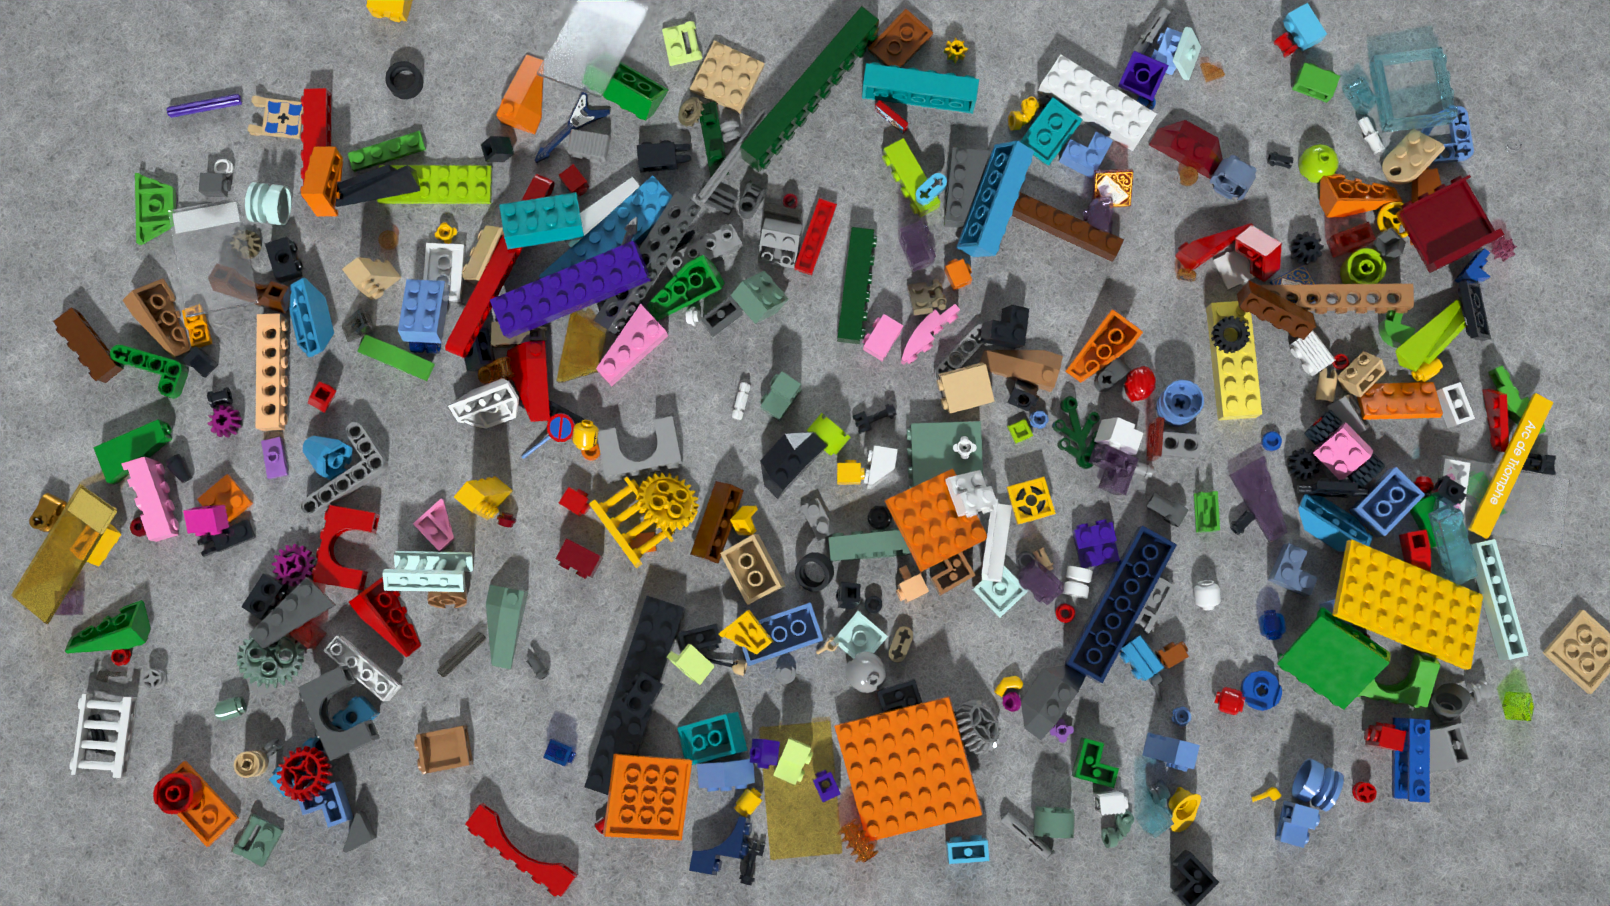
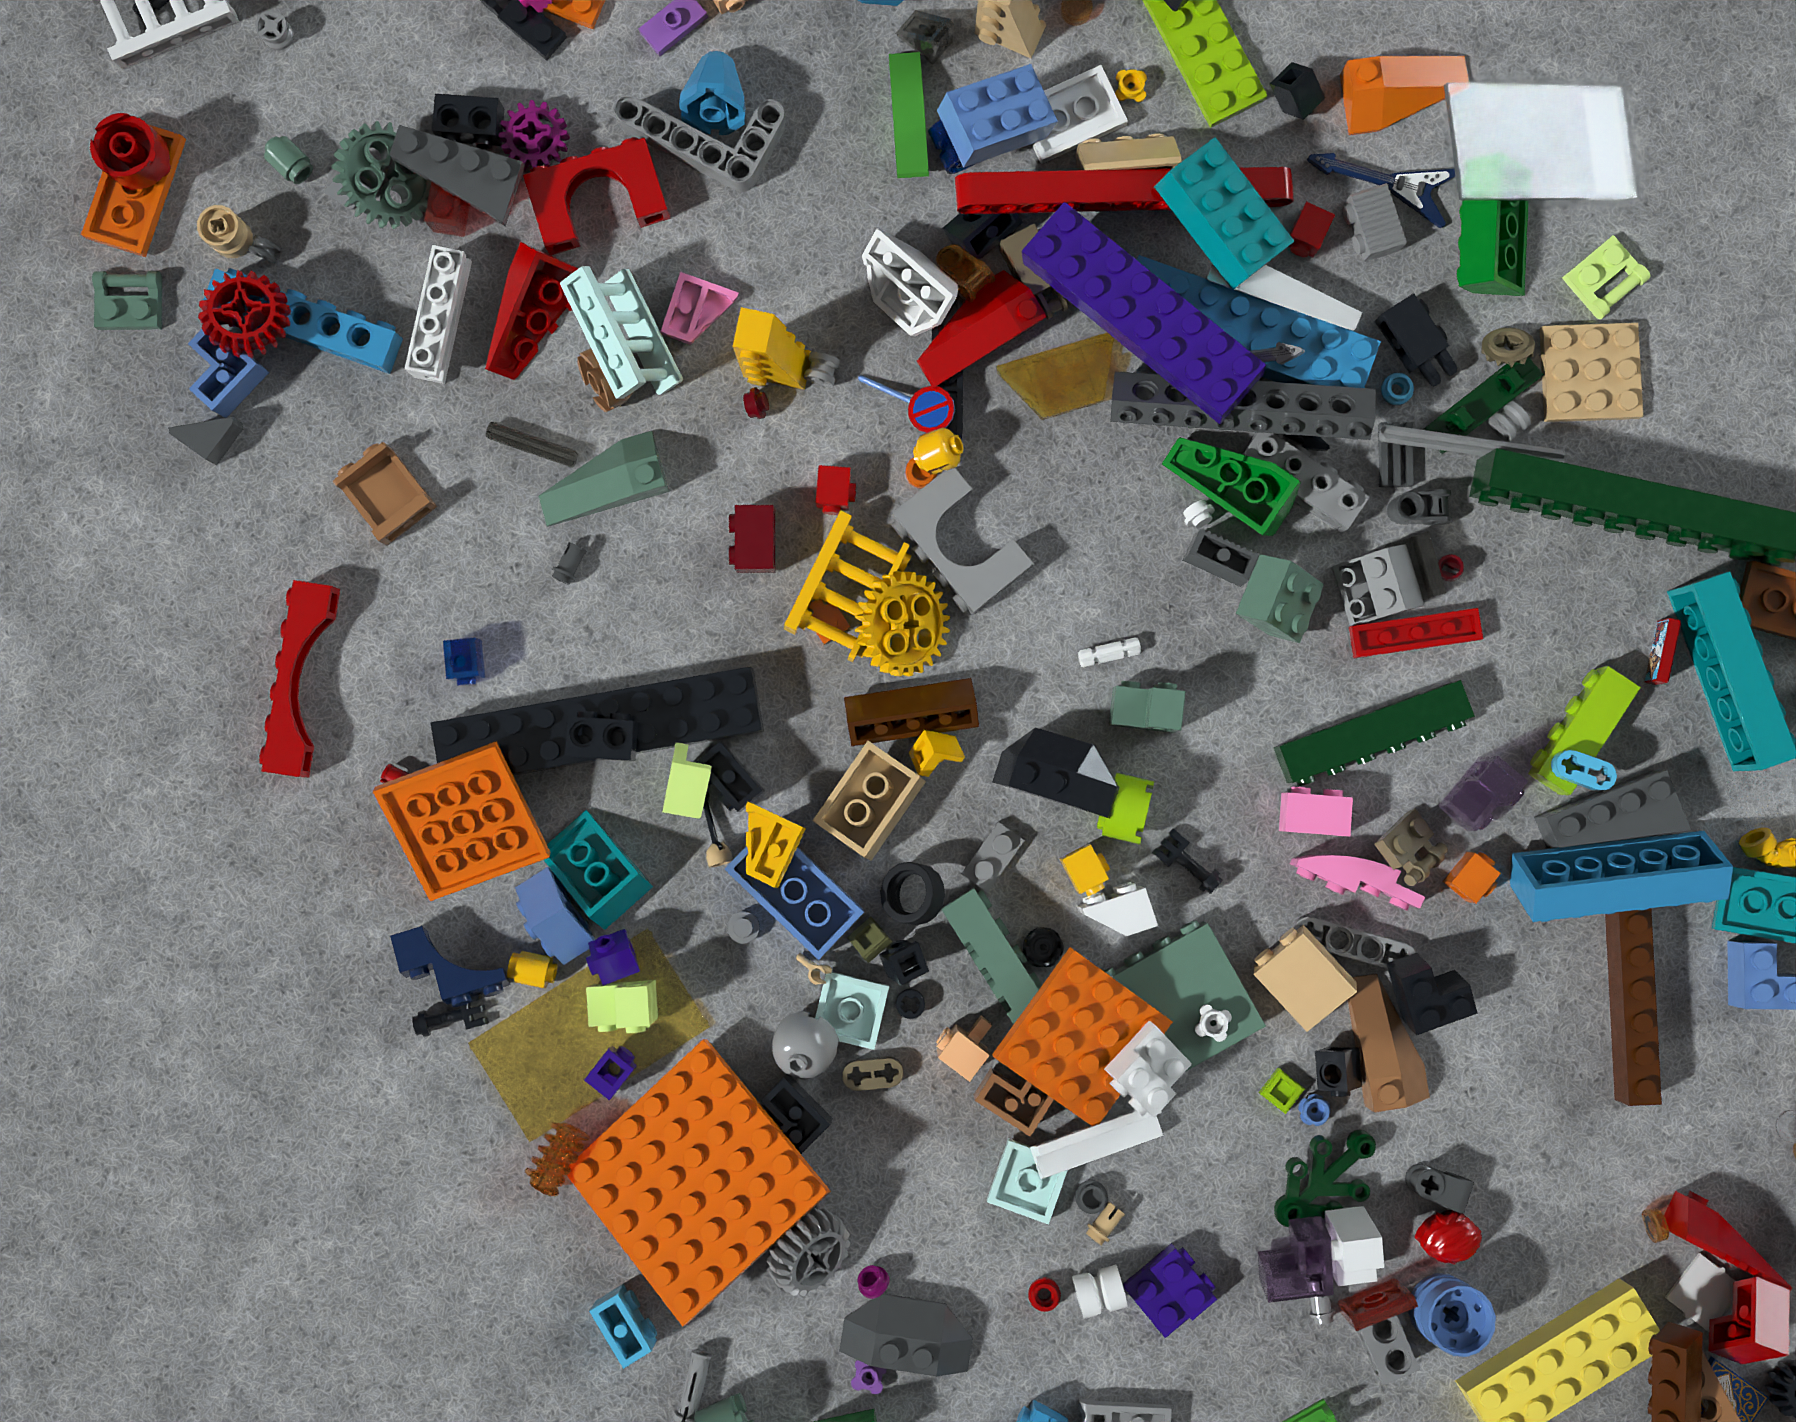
camera: 60 degrees right, 5 degrees up
(317, 696) = (359, 272): dark grey arch -> none
(322, 396) = (795, 39): red brick -> none
(507, 474) = (821, 369): none -> light grey wheel
(631, 346) = (1108, 448): bright pink wedge -> none
(682, 173) = (1404, 382): none -> medium azure plate
(827, 608) = (869, 939): none -> olive tile
(1007, 683) = (897, 1261): yellow arm -> none
(1029, 500) = (1184, 1160): yellow piece -> none
(1040, 582) = (1070, 1237): clear purple brick -> none
(1100, 213) = (1682, 1046): clear purple cylinder -> none
(1107, 343) = (1488, 1159): orange wedge -> none
(1114, 183) = (1732, 1045): tile -> none
(1120, 604) = (1101, 1373): dark blue brick -> none
(1171, 511) = (1278, 1377): dark grey piece -> none
(1222, 343) = (1618, 1352): black tyre -> none

